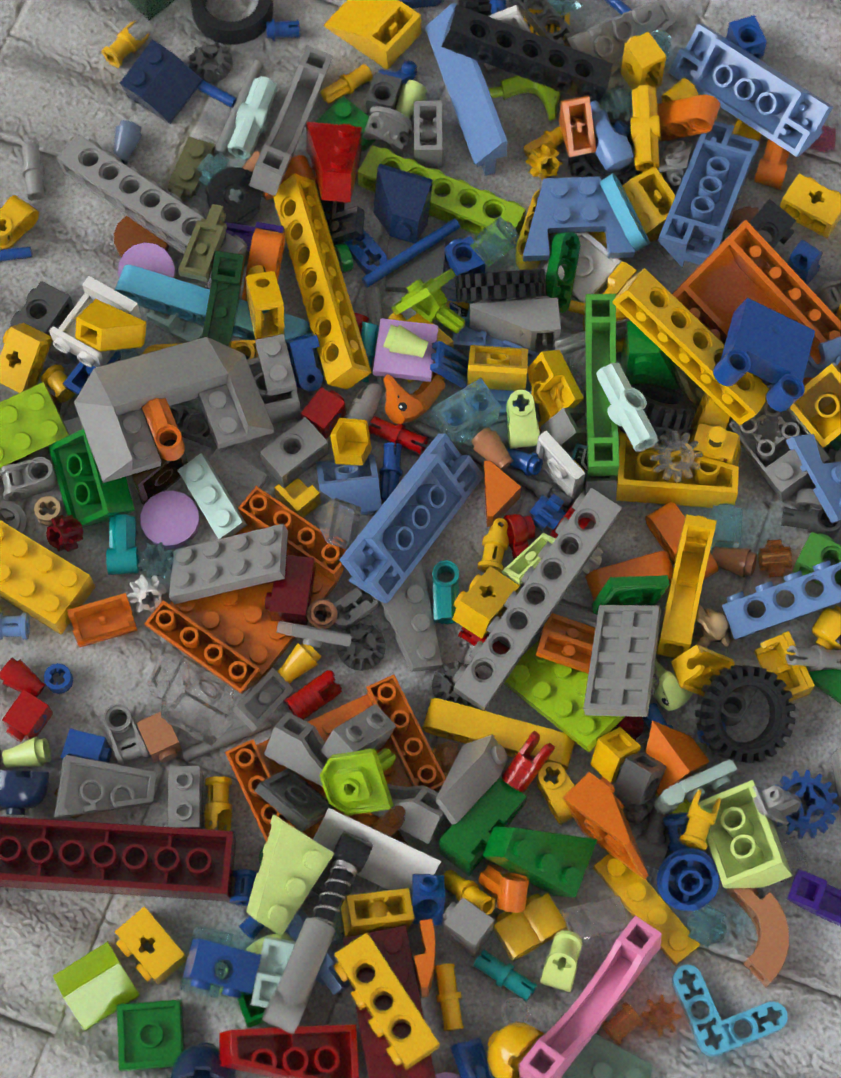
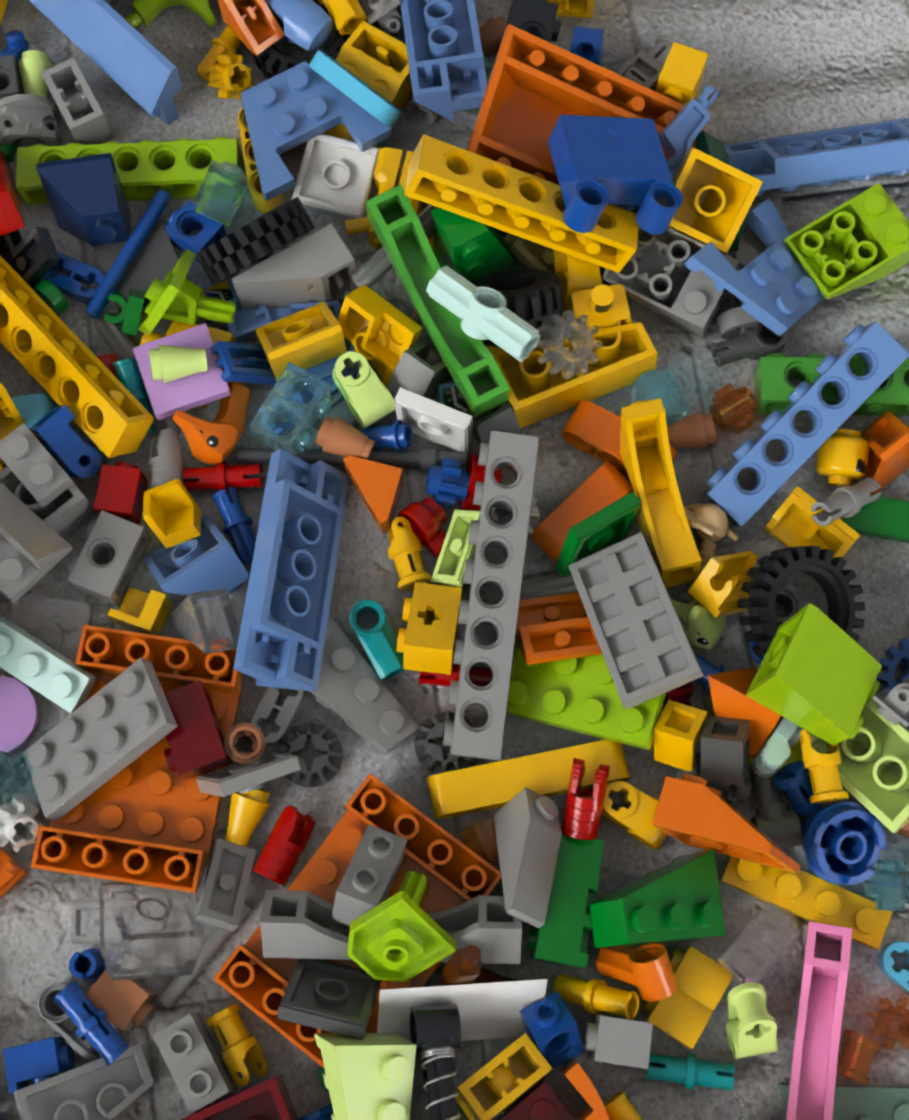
camera: 25 degrees left, 5 degrees up
(134, 739) = (91, 1022): none -> blue pin
(149, 703) = (78, 964): none -> blue pin
(392, 293) = (130, 311): none -> green tile
(564, 252) = (307, 161): green beam -> none
(724, 755) = (816, 676): none -> lime slope

